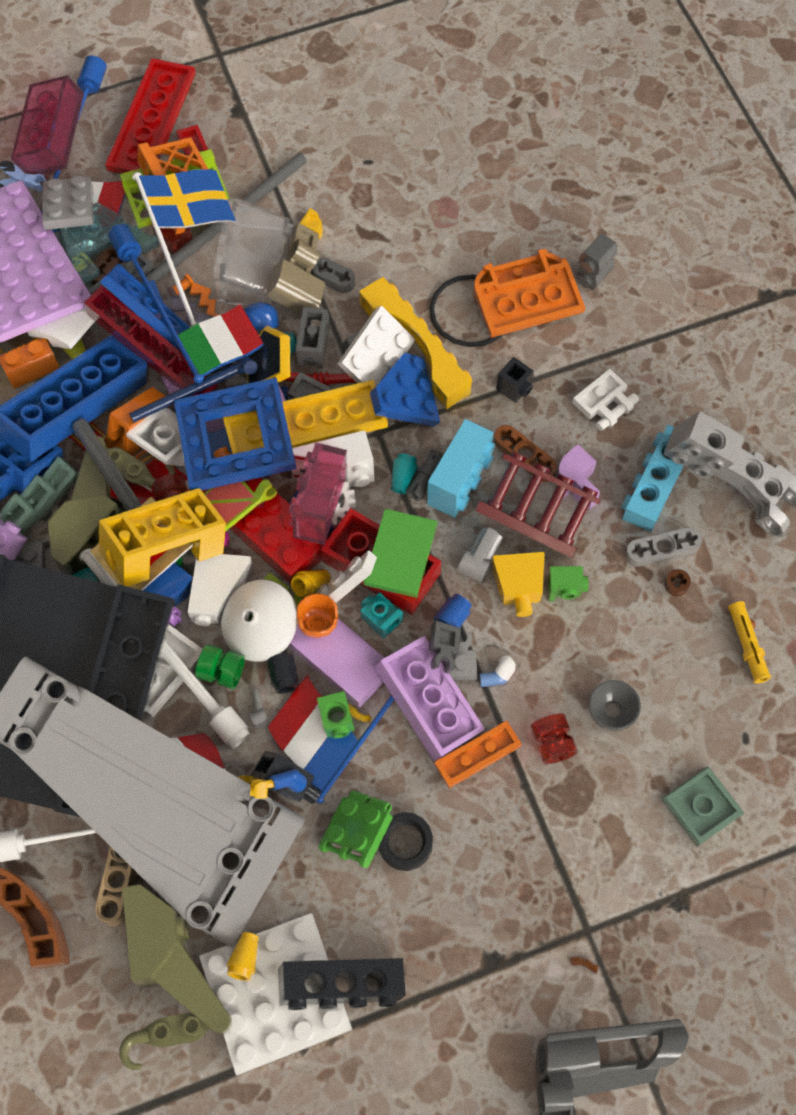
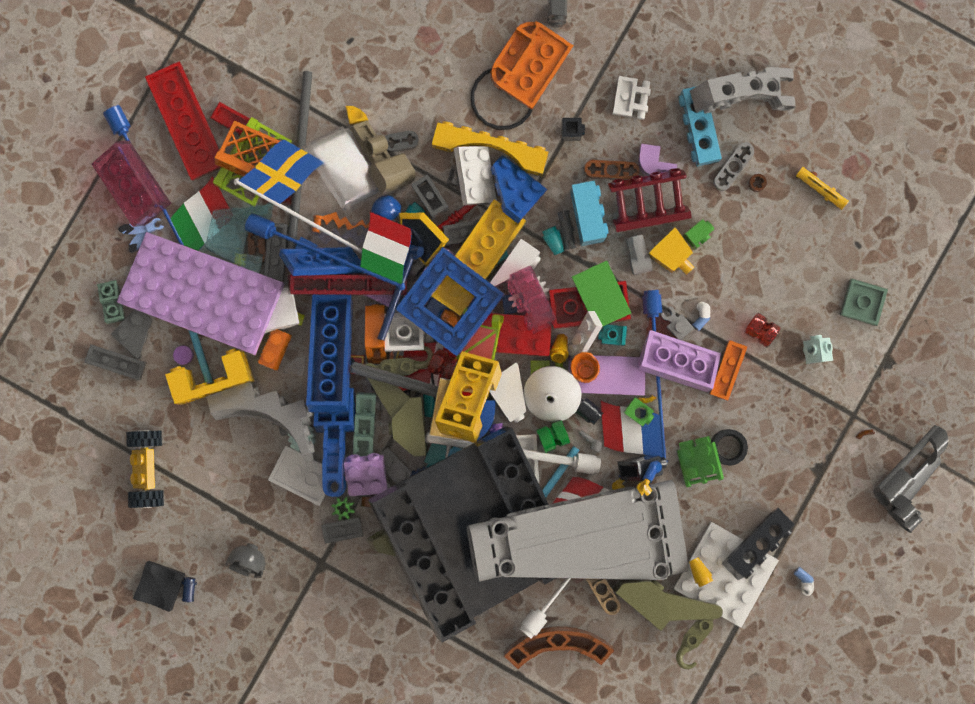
camera: 40 degrees left, 20 degrees up
(67, 203) = (198, 227): light grey plate -> none
(186, 716) = (558, 473): none -> medium azure bar
(364, 1088) = (807, 581): none -> arm
(445, 642) = (664, 325): dark grey plate -> none
(602, 812) = (817, 349): none -> light aqua brick
(620, 694) = (789, 283): dark grey piece -> none

